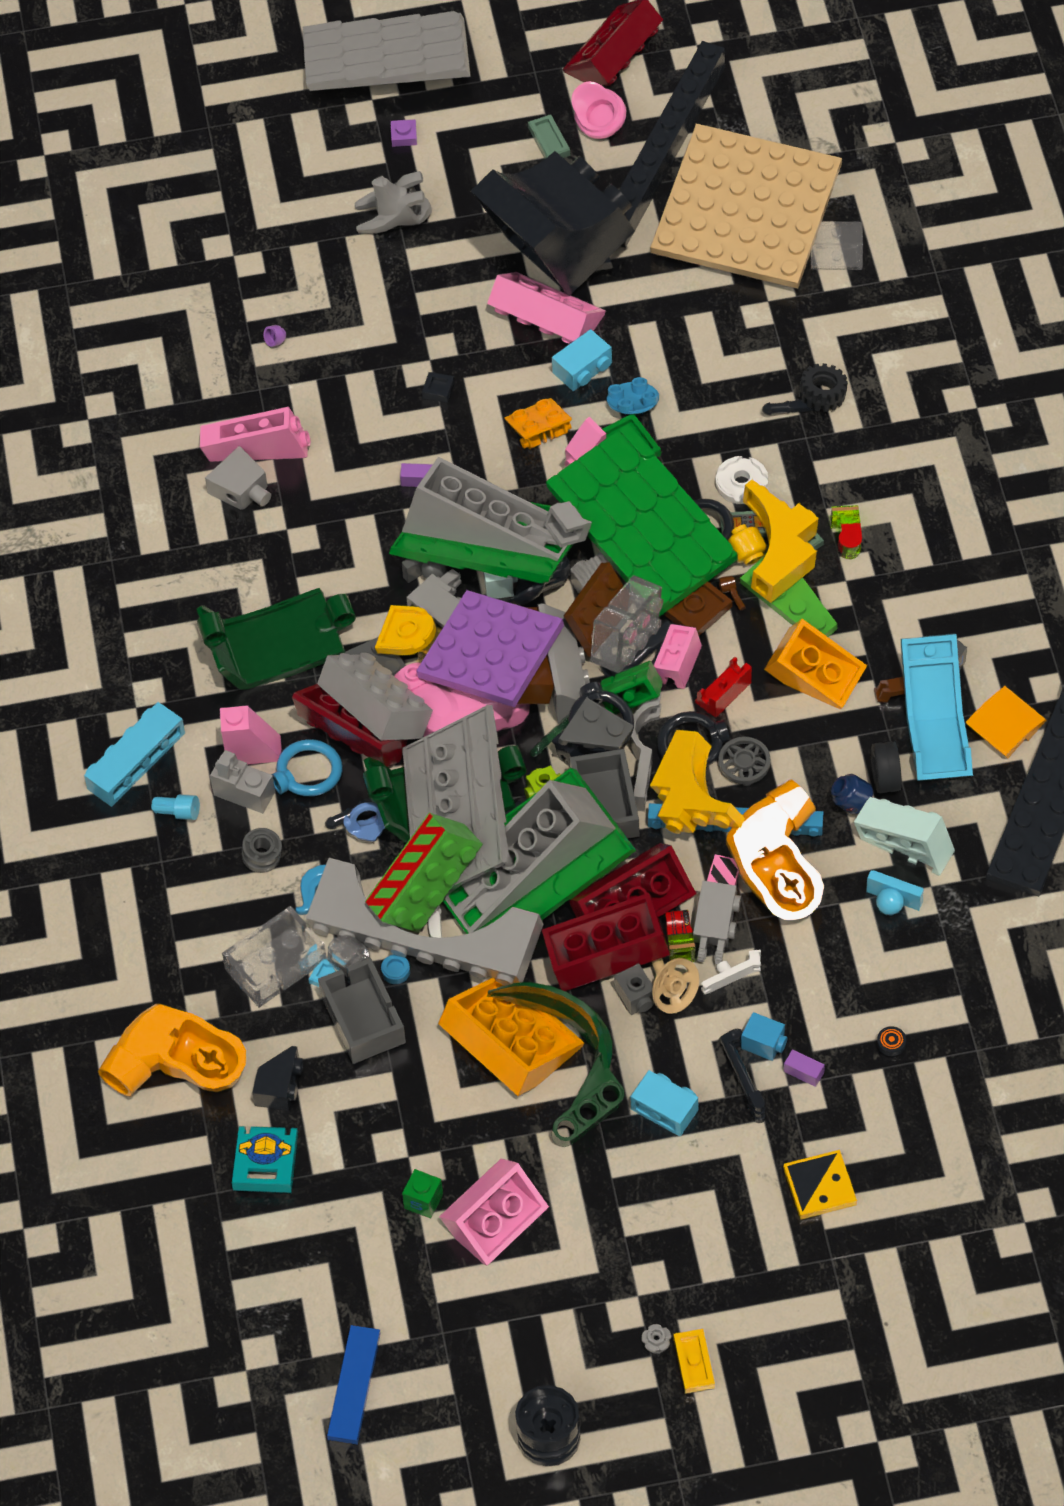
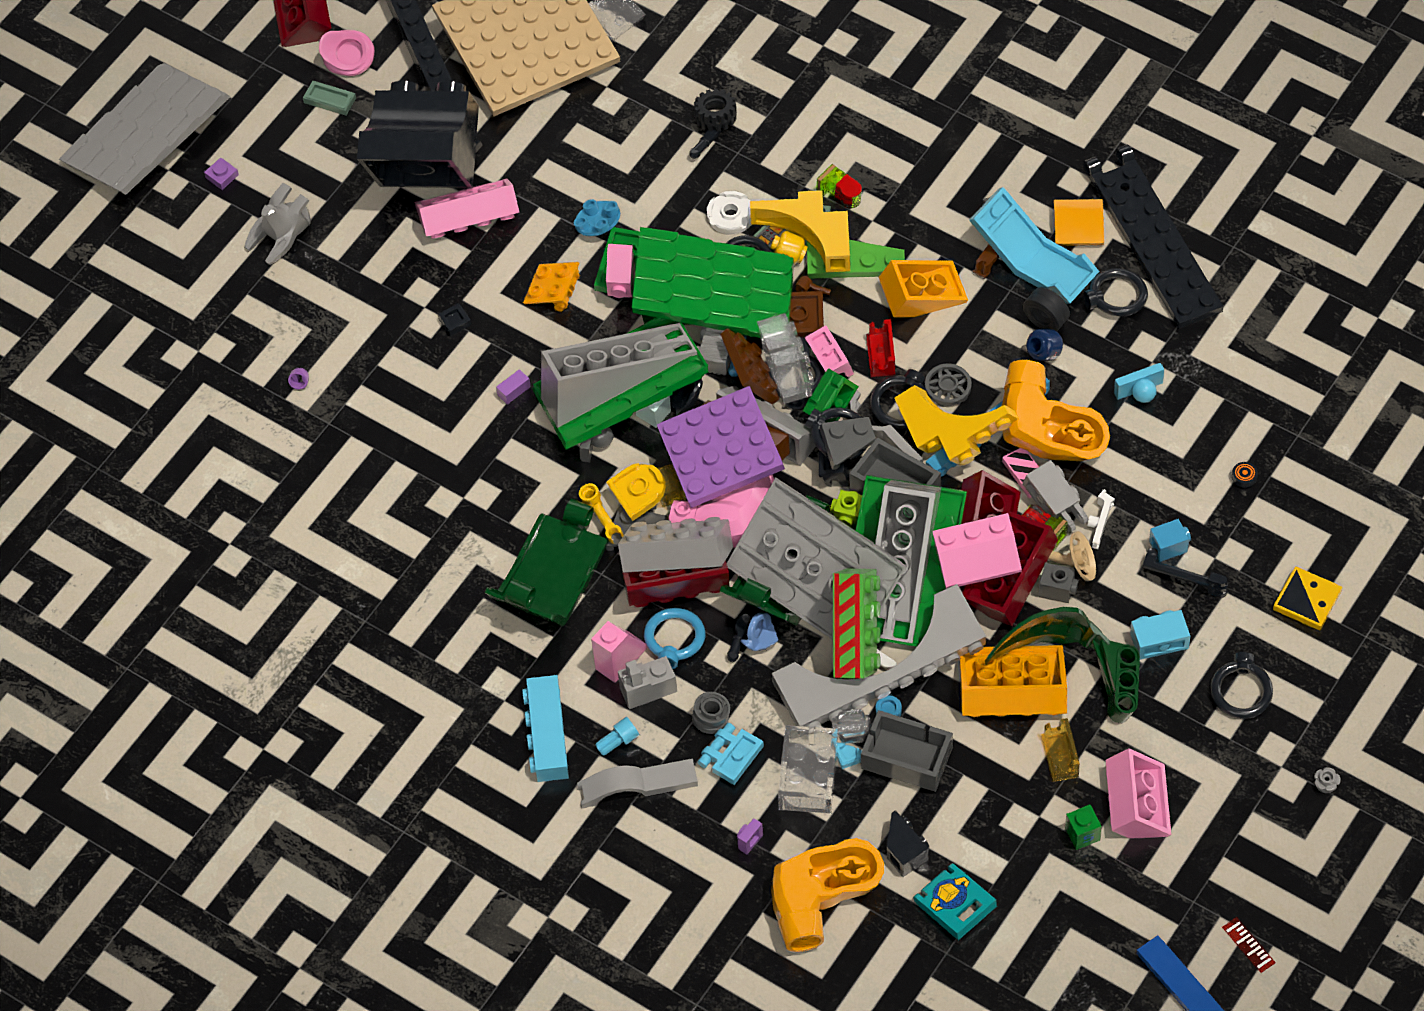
camera: 45 degrees left, 0 degrees up
(154, 854) = (643, 780): none -> light grey piece
(178, 968) = (749, 835): none -> medium lavender plate
(238, 481) = (396, 492): light grey torso -> none
(241, 900) = (736, 757): none -> medium azure plate
(261, 435) = (374, 453): bright pink slope -> none
(309, 886) = (765, 699): dark azure piece -> none
(369, 609) = (591, 496): none -> yellow brick
(437, 596) = (628, 451): light grey hinge -> none
(442, 1406) = (1248, 945): none -> clear red sticker
(480, 1122) = (1060, 751): none -> clear yellow hinge
(547, 739) = (811, 457): clear green piece -> none
(548, 1425) = (1336, 876): black wheel -> none
(566, 524) = (676, 325): light grey window -> none
(582, 360) = (534, 221): medium azure brick -> none
(582, 902) = (977, 551): none -> bright pink slope
(694, 1361) = (1365, 771): yellow plate -> none
(701, 1186) = (1243, 664): none -> black piece
(804, 1068) = (1214, 537): medium lavender piece -> none
(906, 830) = (1103, 338): light aqua wedge -> none
(942, 793) = (1094, 297): none -> black piece

